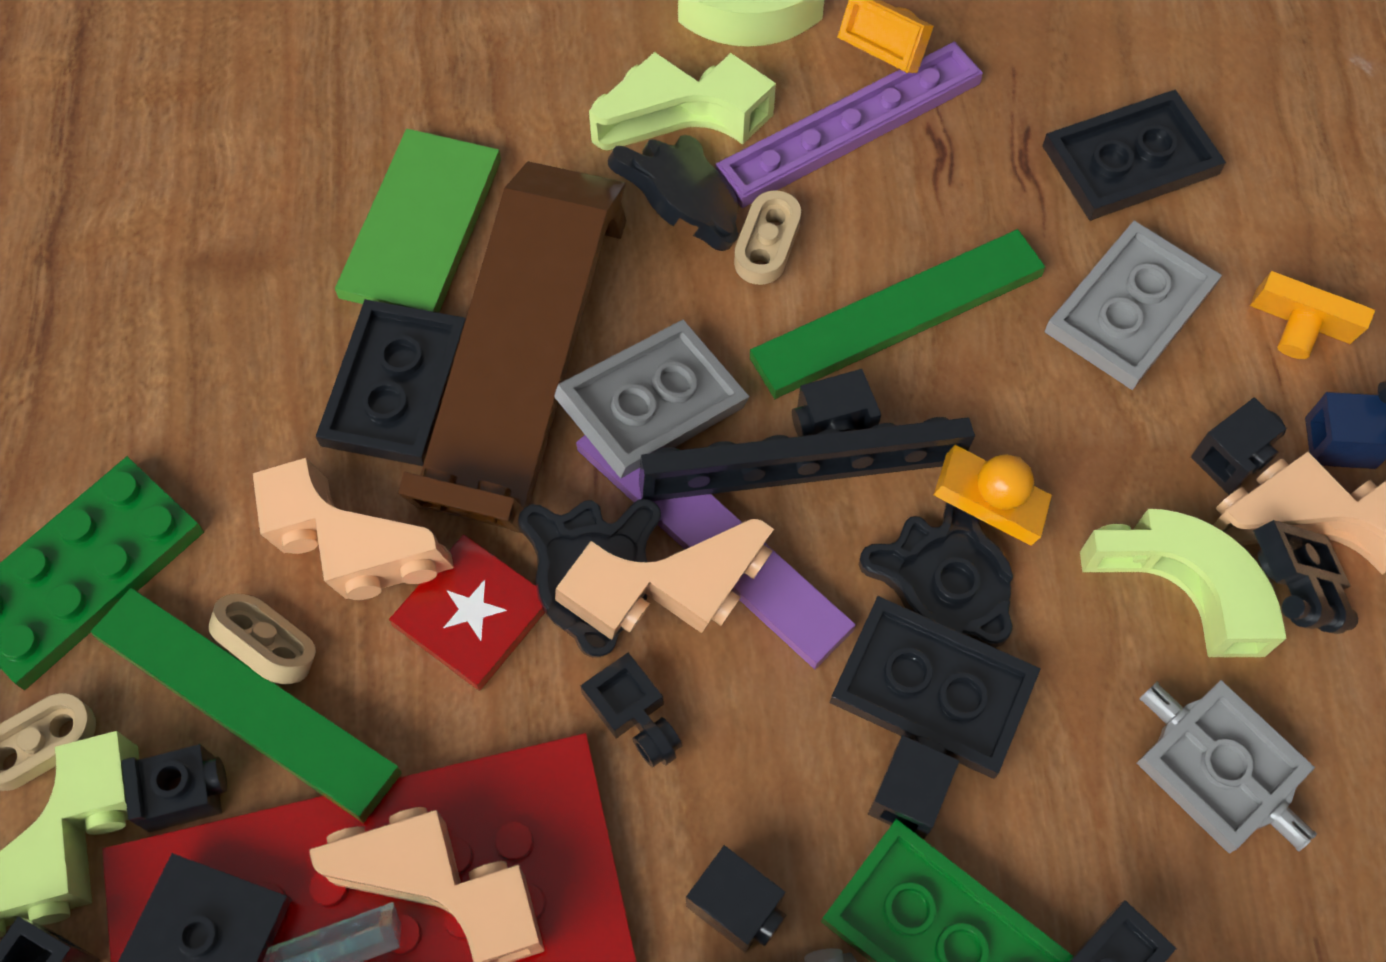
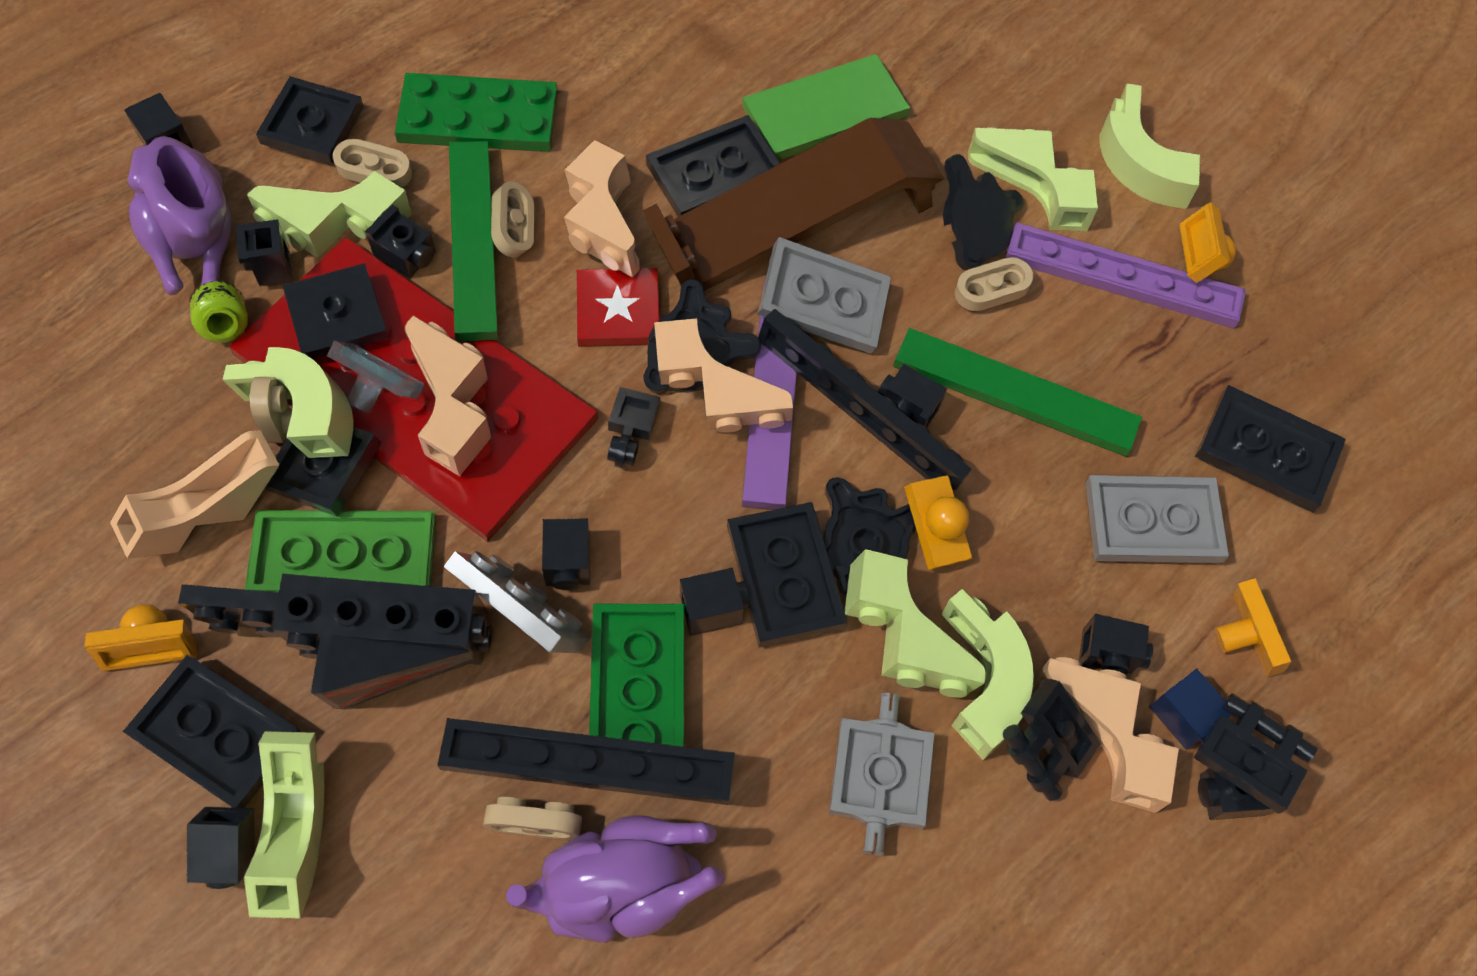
camera: 45 degrees right, 0 degrees up
(1112, 624) = (914, 647): none -> yellowish green arch

